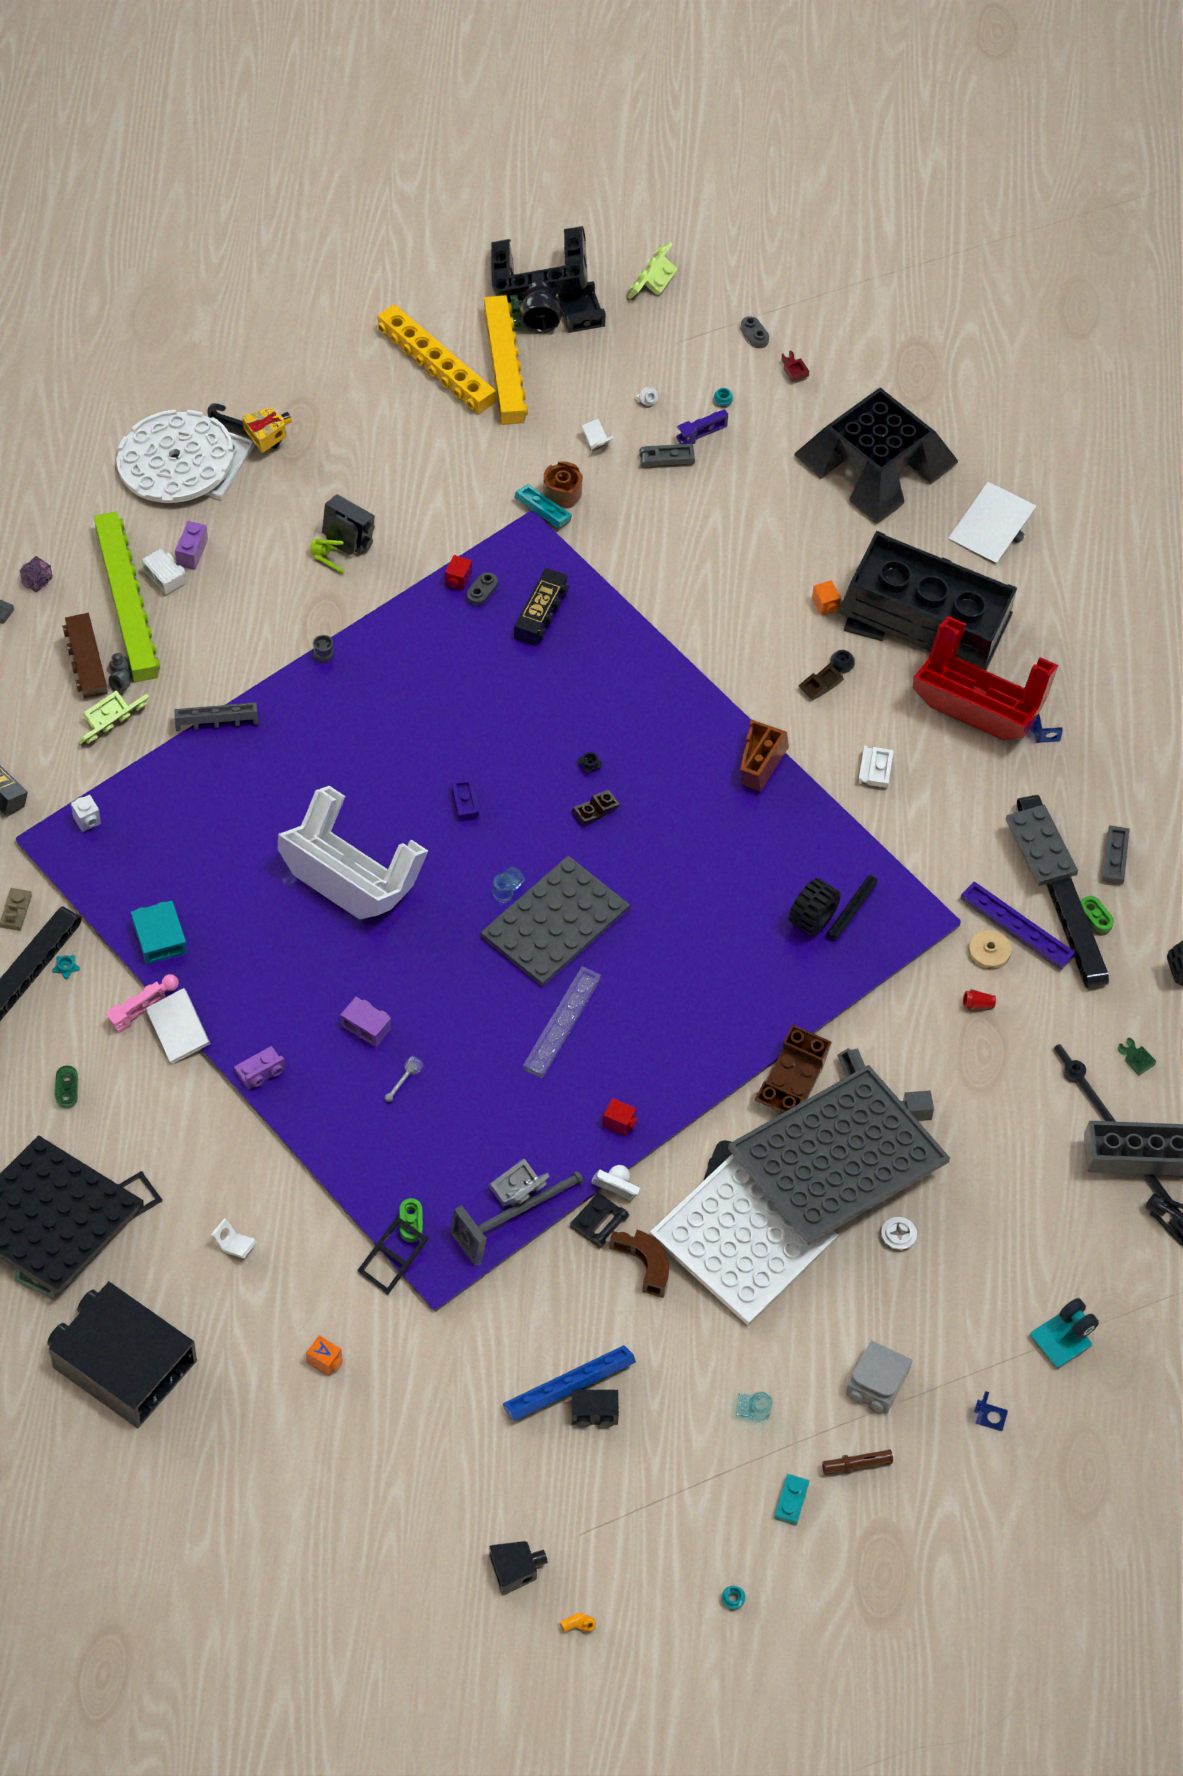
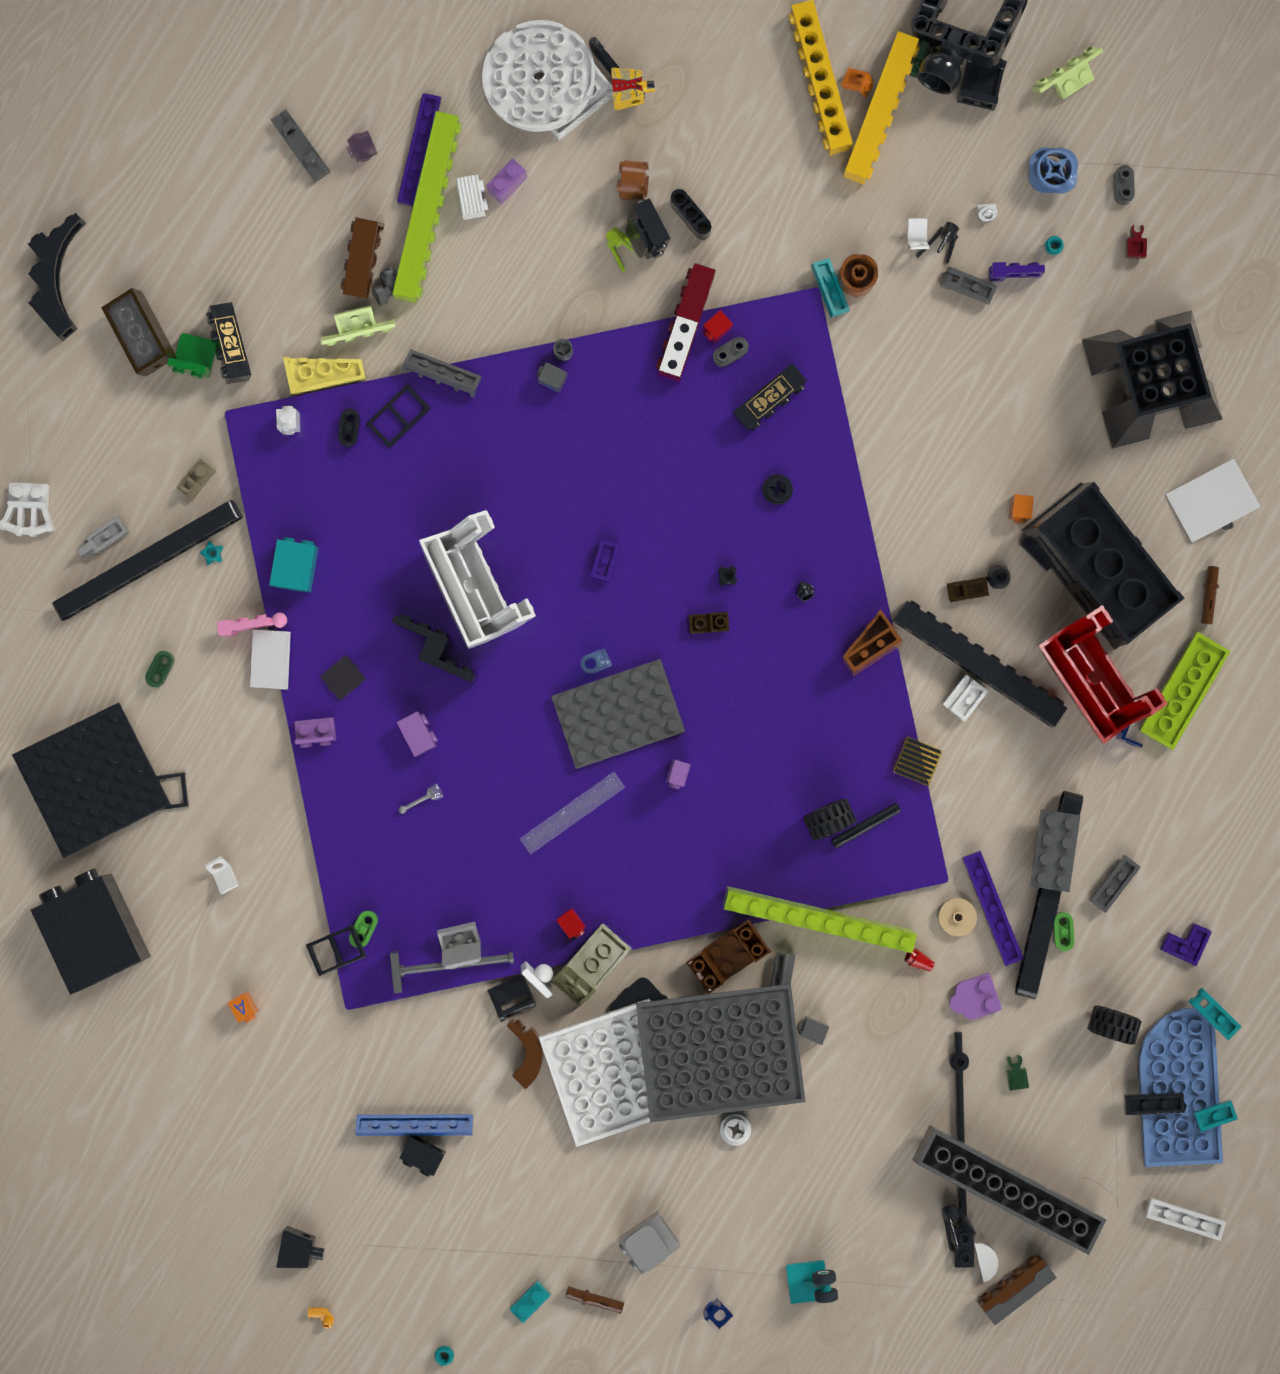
camera: 30 degrees right, 30 degrees up
(91, 771) = (316, 374): none -> light yellow wing
(92, 558) = (418, 147): none -> dark purple tile
(151, 797) = (349, 428): none -> black plate
(206, 774) = (408, 425): none -> black window
(261, 1010) = (343, 677): none -> clear smoke piece
(310, 494) = (633, 180): none -> dark orange brick
(325, 674) = (551, 377): none -> dark grey brick
(347, 944) = (435, 648): none -> black bracket
(380, 502) = (689, 205): none -> black beam
(427, 581) = (686, 322): none -> brick
(470, 348) = (858, 81): none -> orange bracket
(599, 670) = (785, 485): none -> black gear
(623, 425) = (948, 234): none -> black plant
(645, 935) = (677, 774): none -> medium lavender brick
(661, 1150) = (591, 965): none -> olive bracket
(671, 742) = (805, 591): none -> black plate
(686, 343) = (1066, 158): none -> medium blue piece
(746, 1406) = (535, 1214): clear light blue piece -> none
(860, 1002) = (819, 919): none -> lime brick
(865, 834) = (917, 761): none -> tile
(883, 733) = (979, 664): none -> black brick
(1037, 587) = (1210, 595): none -> reddish brown pin
(1054, 1009) = (975, 997): none -> medium lavender plate
(1072, 682) = (1185, 690): none -> lime plate

